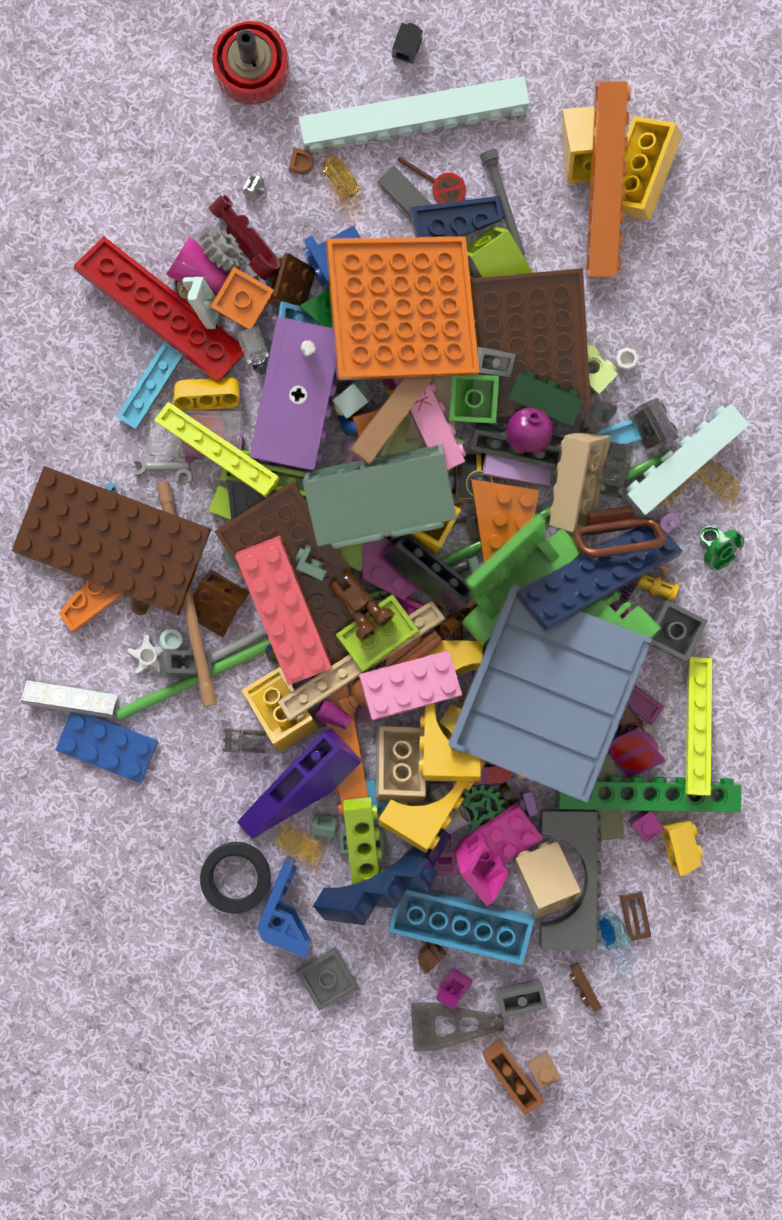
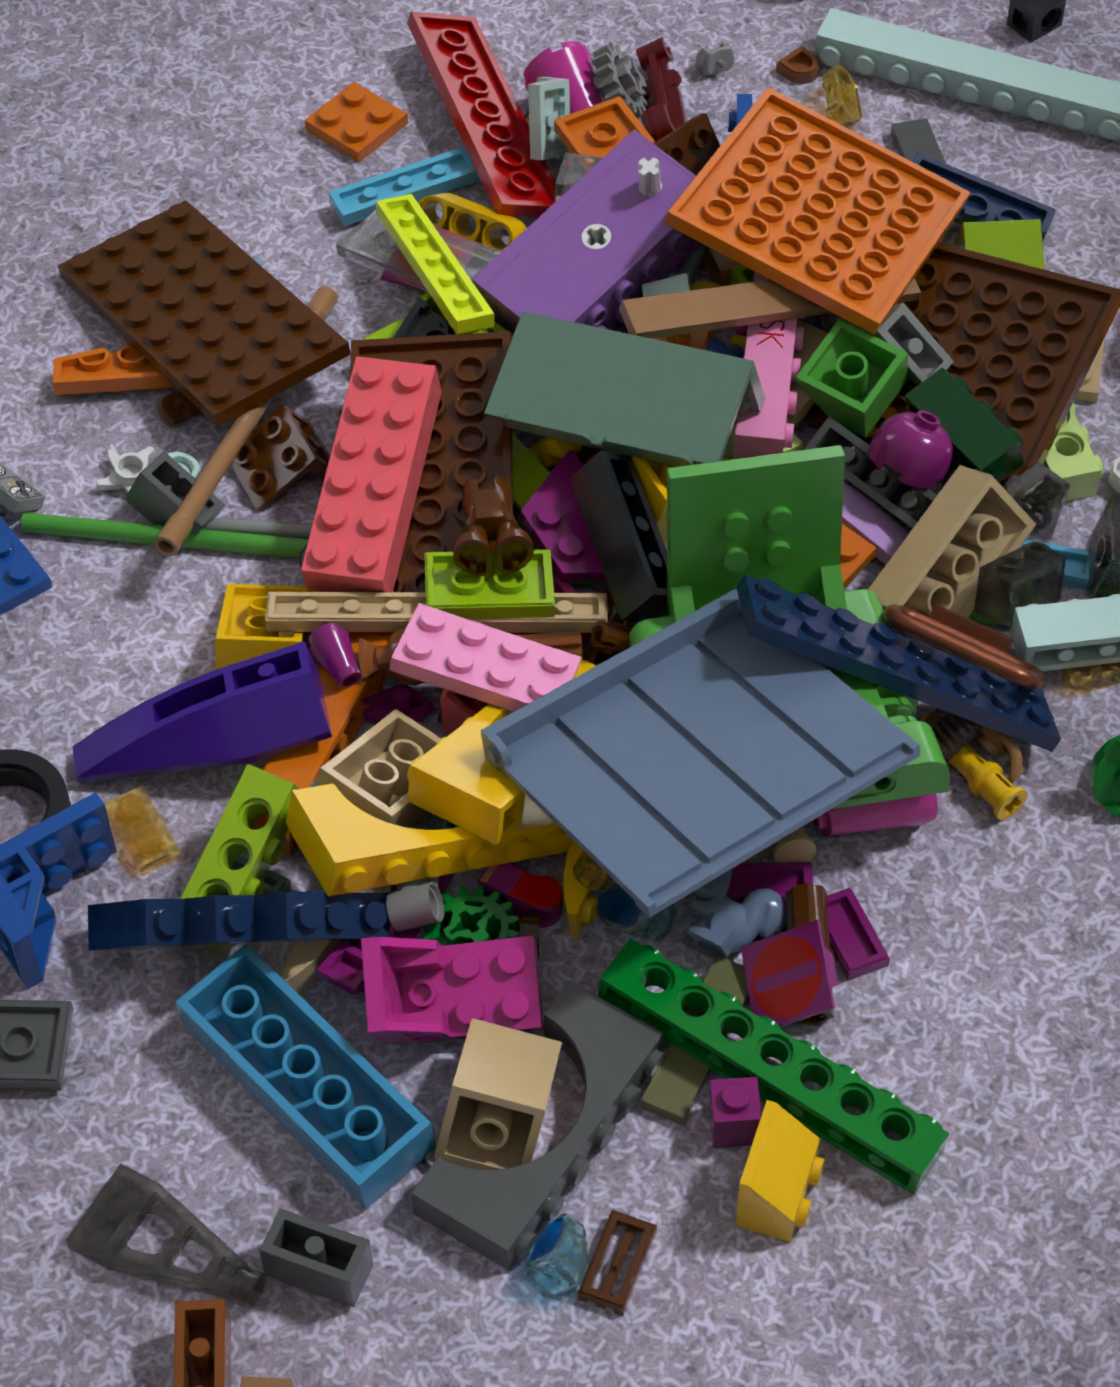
camera: 30 degrees right, 35 degrees down
(91, 351) = (356, 121): none -> orange plate
(181, 467) = (362, 291): light grey bar -> none
(241, 740) = (175, 643): clear smoke arm -> none
(312, 567) = (452, 437): sand green bracket -> none
(324, 826) = (196, 817): sand green tile -> none
(430, 956) = (214, 1113): reddish brown piece -> none
(446, 187) = (986, 169): piece -> none
(453, 988) = (213, 1181): magenta bracket -> none
(490, 160) = (1070, 171): dark grey piece -> none
(527, 803) = (554, 967): medium lavender plate -> none
(588, 995) = (443, 1298): reddish brown plate -> none
(668, 521) = (1066, 705): lavender piece -> none
(678, 630) = (976, 846): dark grey brick -> none
(698, 726) = (926, 1003): neon yellow plate -> none

